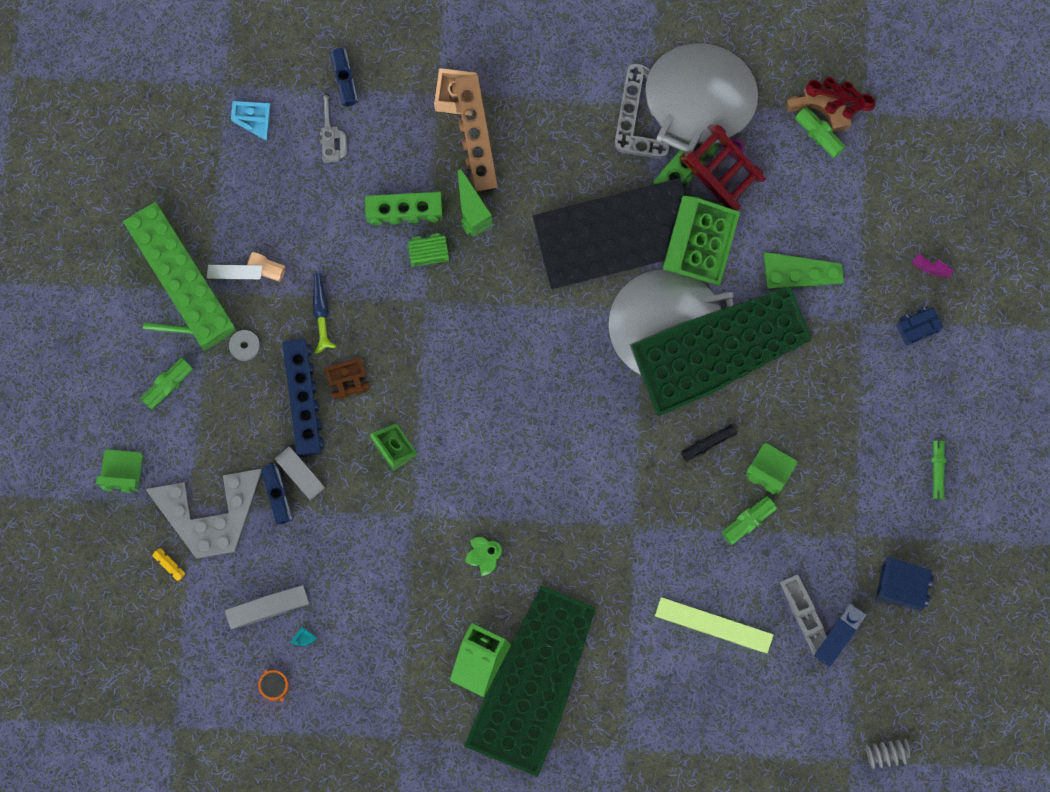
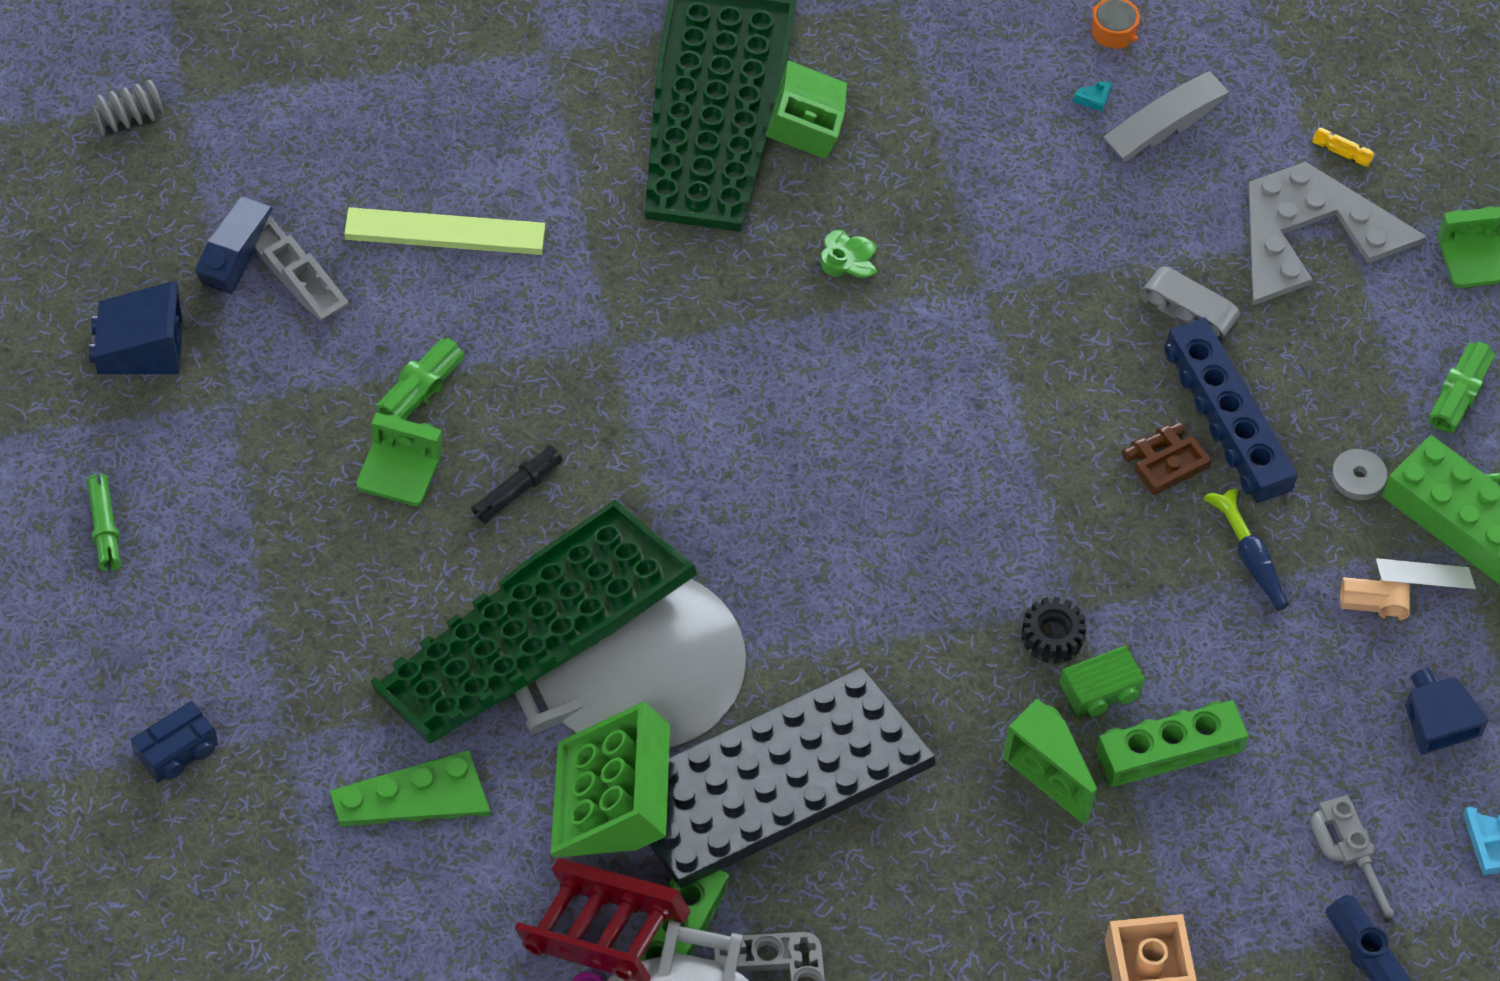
camera: 160 degrees right, 20 degrees down
(258, 192) = (1442, 712): none -> dark blue torso
(280, 505) = (1214, 265): dark blue piece -> none
(393, 446) = (1052, 367): bright green slope -> none
(443, 276) = (1059, 613): none -> black tyre
(471, 83) = (1088, 878): medium nougat brick -> none
(938, 269) = (156, 845): magenta slope -> none

